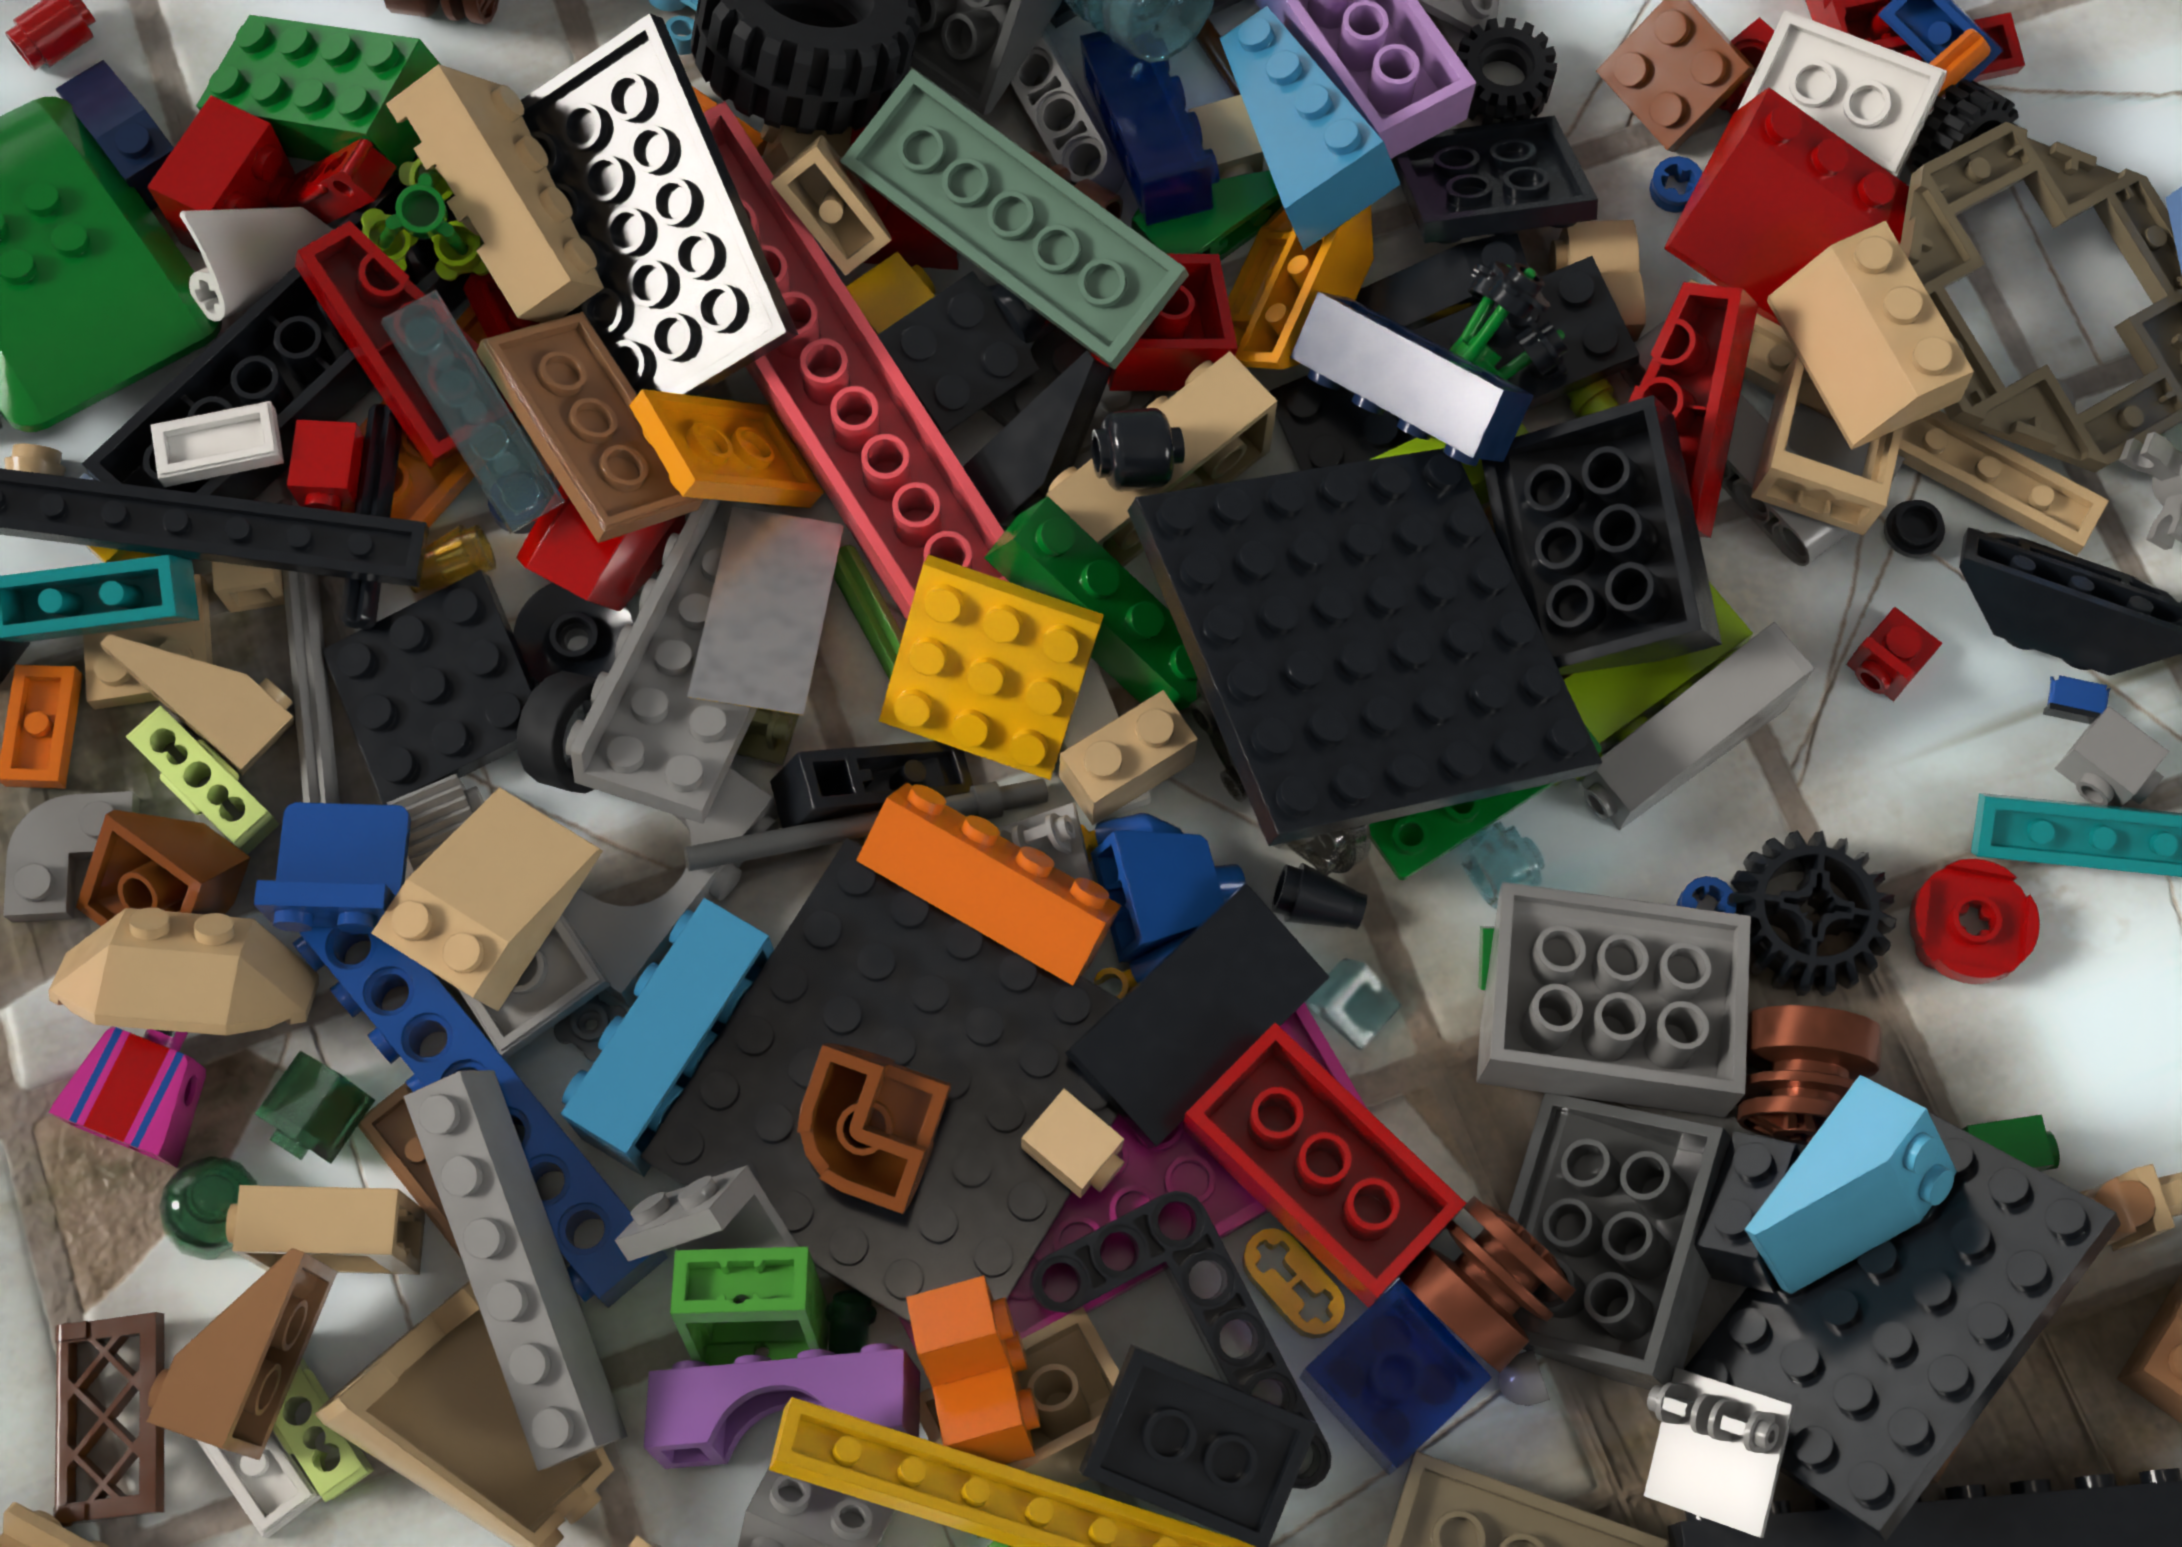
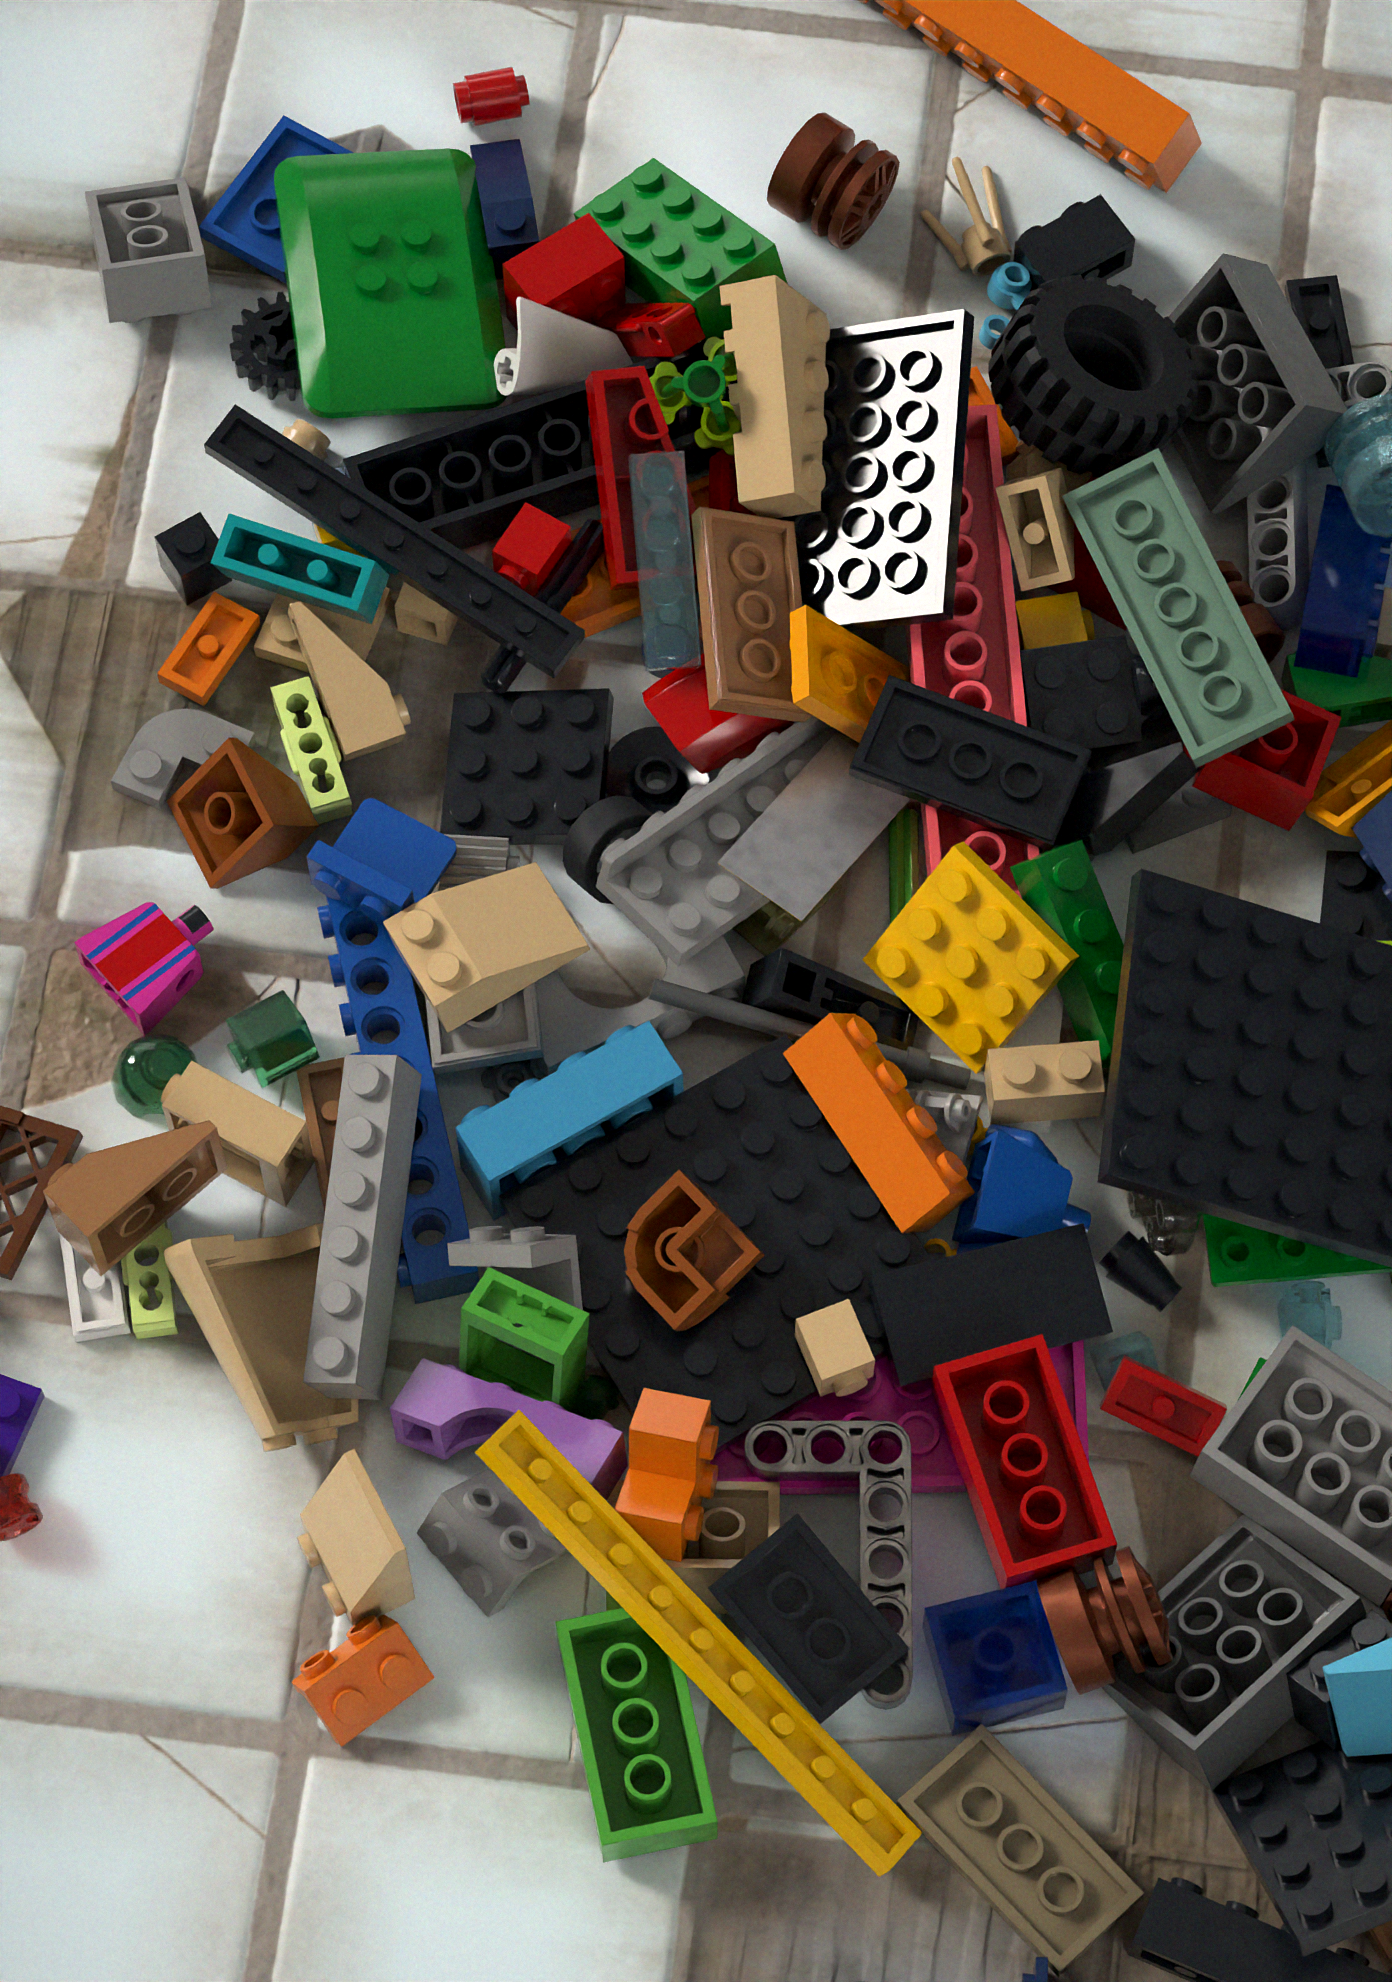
camera: 30 degrees right, 5 degrees down
(184, 975) = (227, 888): tan wedge -> none
(217, 444) = (454, 492): white tile -> none
(310, 685) = (431, 714): light grey axle -> none
(455, 557) = (594, 670): clear yellow cone -> none
(887, 471) = (970, 763): none -> black tile
(1136, 449) = (1174, 837): black head -> none
(1224, 429) = (1245, 853): tan brick -> none
(1304, 1272) = (969, 1550): yellow beam -> none
(1415, 1026) = (1162, 1406): none -> red plate
(1523, 1381) = (1099, 1719): light grey hinge -> none
(1717, 1450) = (1216, 1834): hinge -> none

